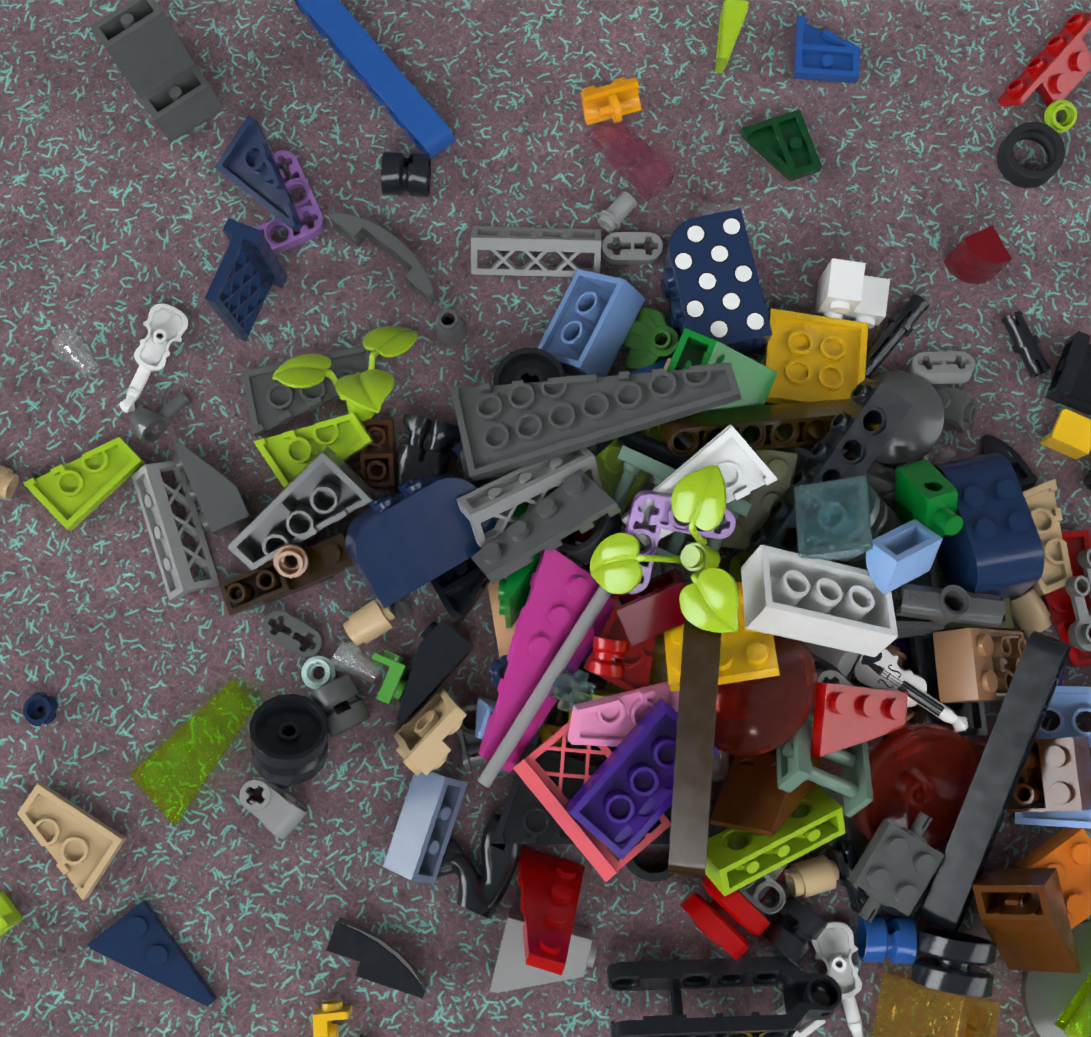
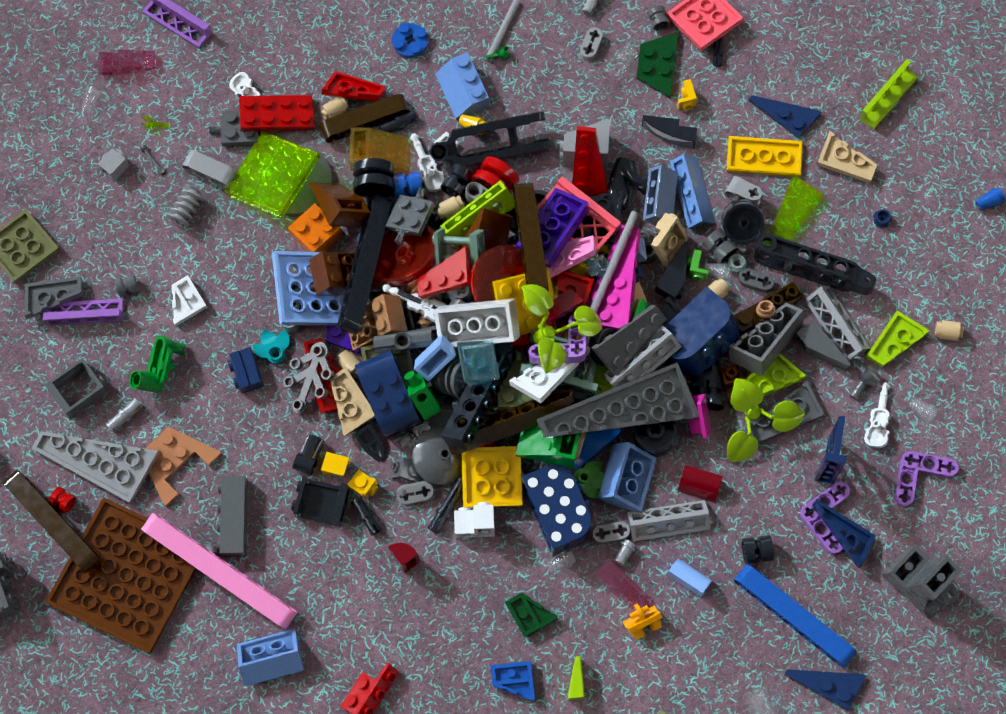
camera: 175 degrees right, 10 degrees down
(124, 258) = (912, 470): none -> medium lavender beam
(158, 617) = (785, 255): none -> black piece
(216, 874) = (764, 156): none -> yellow tile
(358, 229) = (781, 511): dark grey slope -> none
(364, 827) = (692, 191): none -> medium blue panel
(443, 407) = (700, 424): none -> dark pink panel
(450, 334) = (709, 466): dark grey cone -> none
(471, 299) = (700, 483): none -> dark red brick
(522, 153) = (689, 577): none -> light blue brick
(608, 656) = (582, 282): red wheel -> none
(1024, 398) = (363, 484): none -> yellow bracket
(1044, 136) = (375, 620): black tyre -> none
(1069, 115) = (359, 660): lime plate -> none

